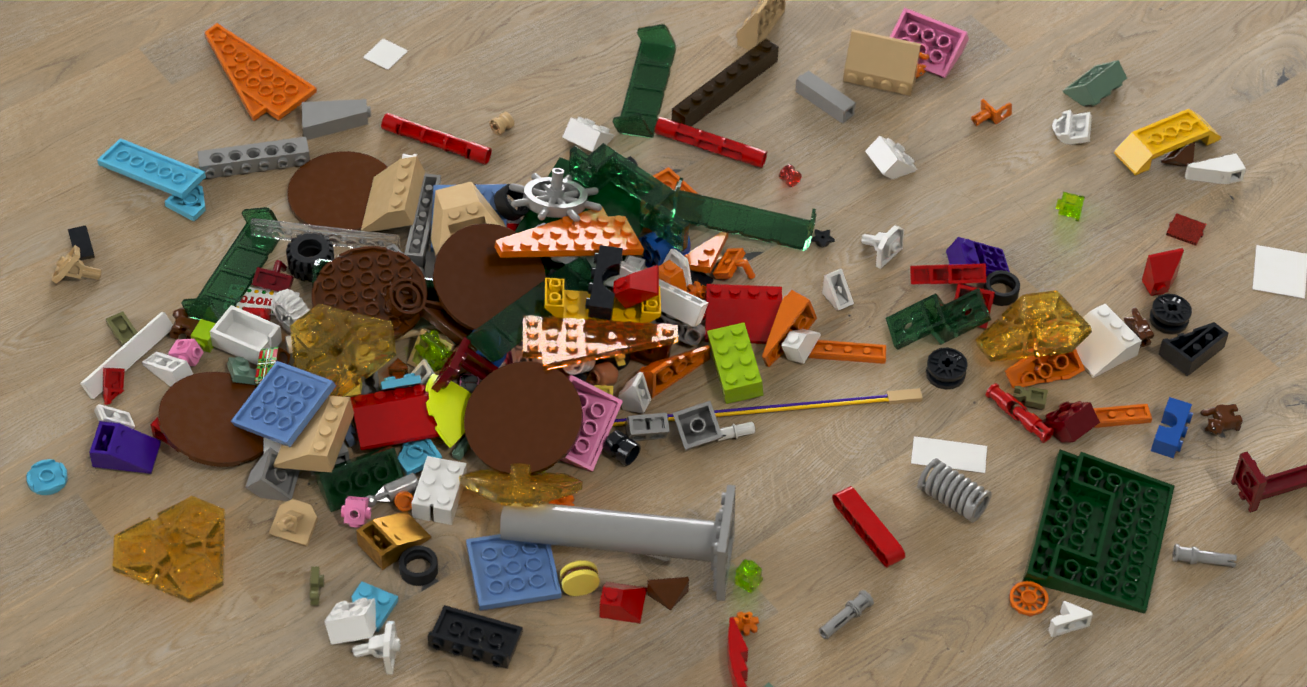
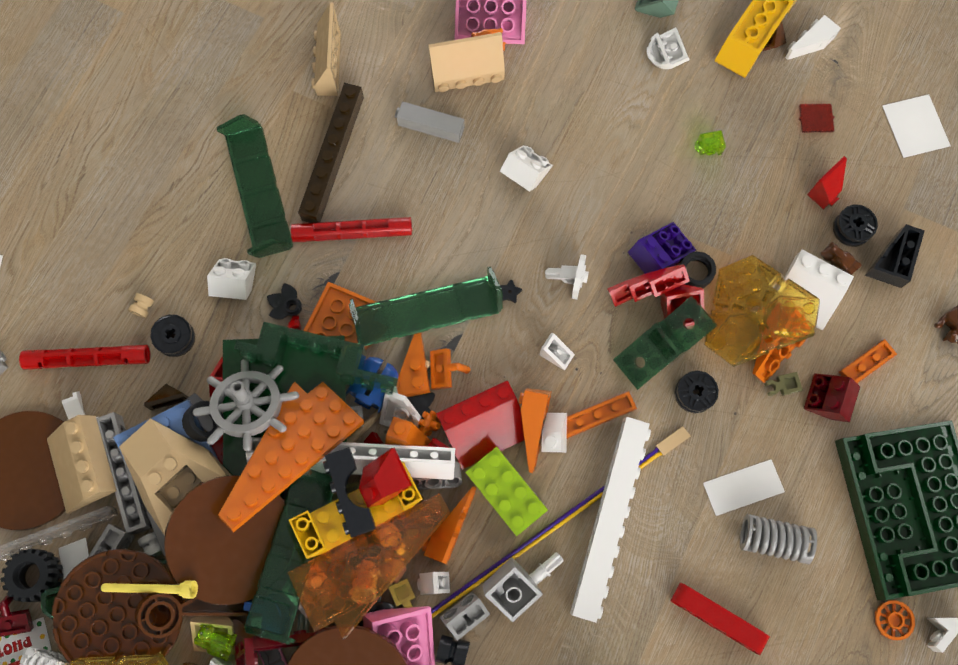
camera: 25 degrees left, 25 degrees up
(439, 284) = (187, 589): none -> light yellow piece
(516, 153) = (169, 325): none -> black wheel
(790, 175) = (444, 233): clear red wheel -> none
(813, 418) = (610, 519): none -> white brick
(989, 112) = (585, 69): orange bracket -> none
(1030, 421) = (794, 413): red piece -> none
(1167, 439) = (921, 342): blue arch -> none

